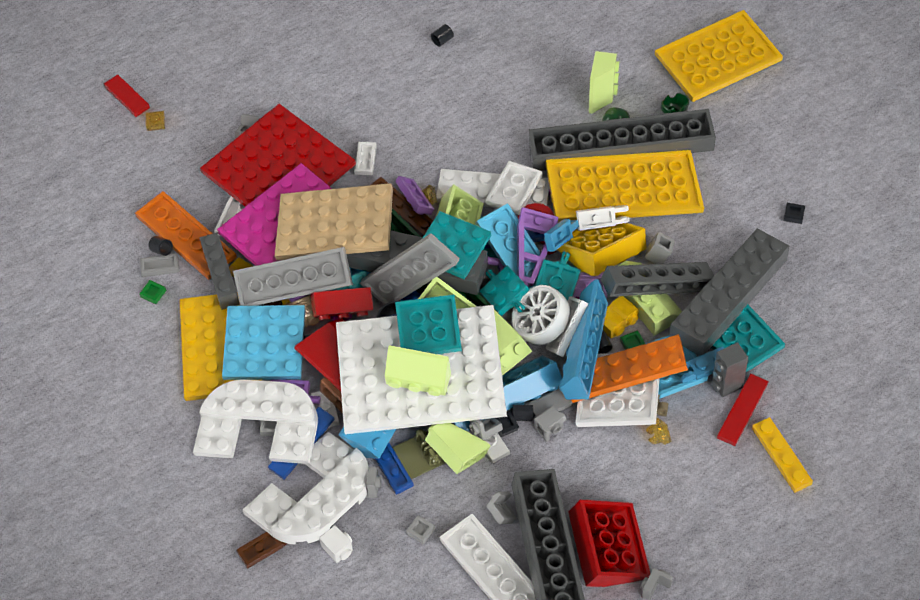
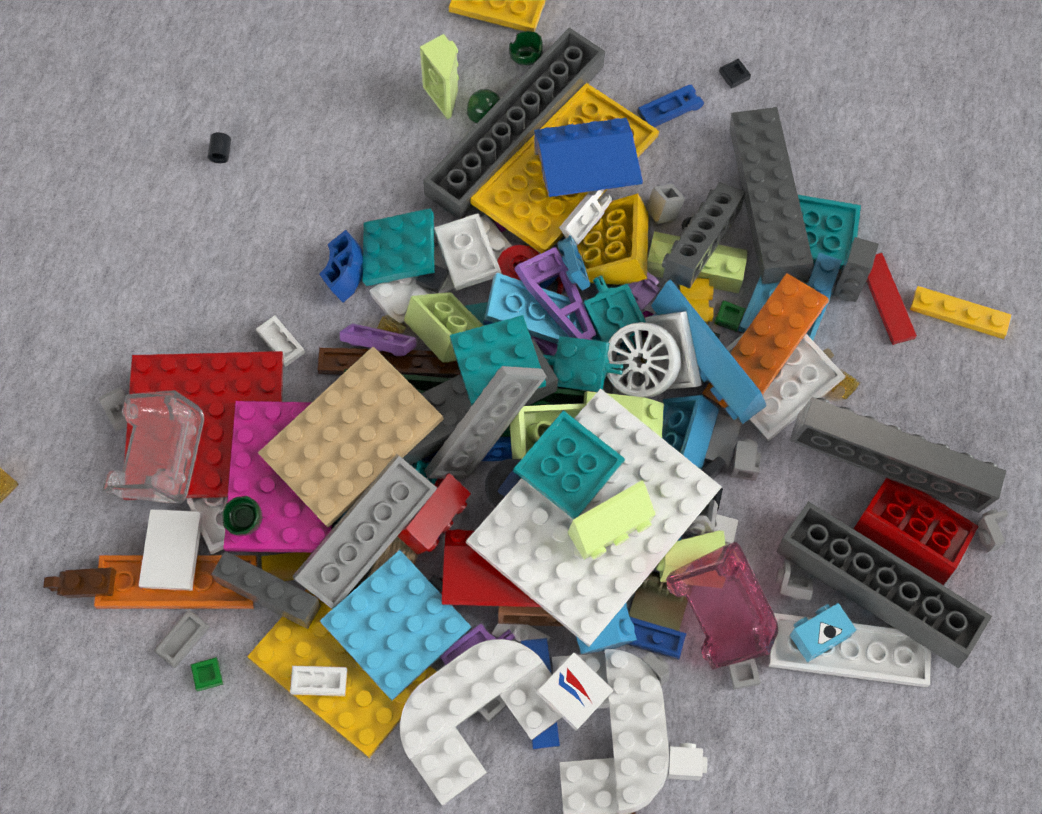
camera: 50 degrees left, 10 degrees up
(141, 197) = (82, 582): none -> reddish brown hinge
(155, 243) = (164, 617): black beam -> none
(196, 214) = (171, 550): none -> white tile
(197, 336) = (318, 681): none -> white plate
(238, 217) = (242, 516): none -> dark green hair
(240, 158) = (159, 448): none -> clear windscreen
(314, 450) = (574, 691): none -> white tile
(438, 144) = (344, 266): none -> blue brick
(447, 478) = (727, 606): none -> clear pink windscreen
(479, 156) = (398, 247): none -> teal plate
(479, 186) = (433, 280): none -> black tile
(484, 543) = (822, 631): none -> medium azure brick
(634, 184) = (587, 157): none -> blue piece
(636, 488) = (898, 455): none -> dark grey brick
(729, 201) = (670, 106): none -> blue plate

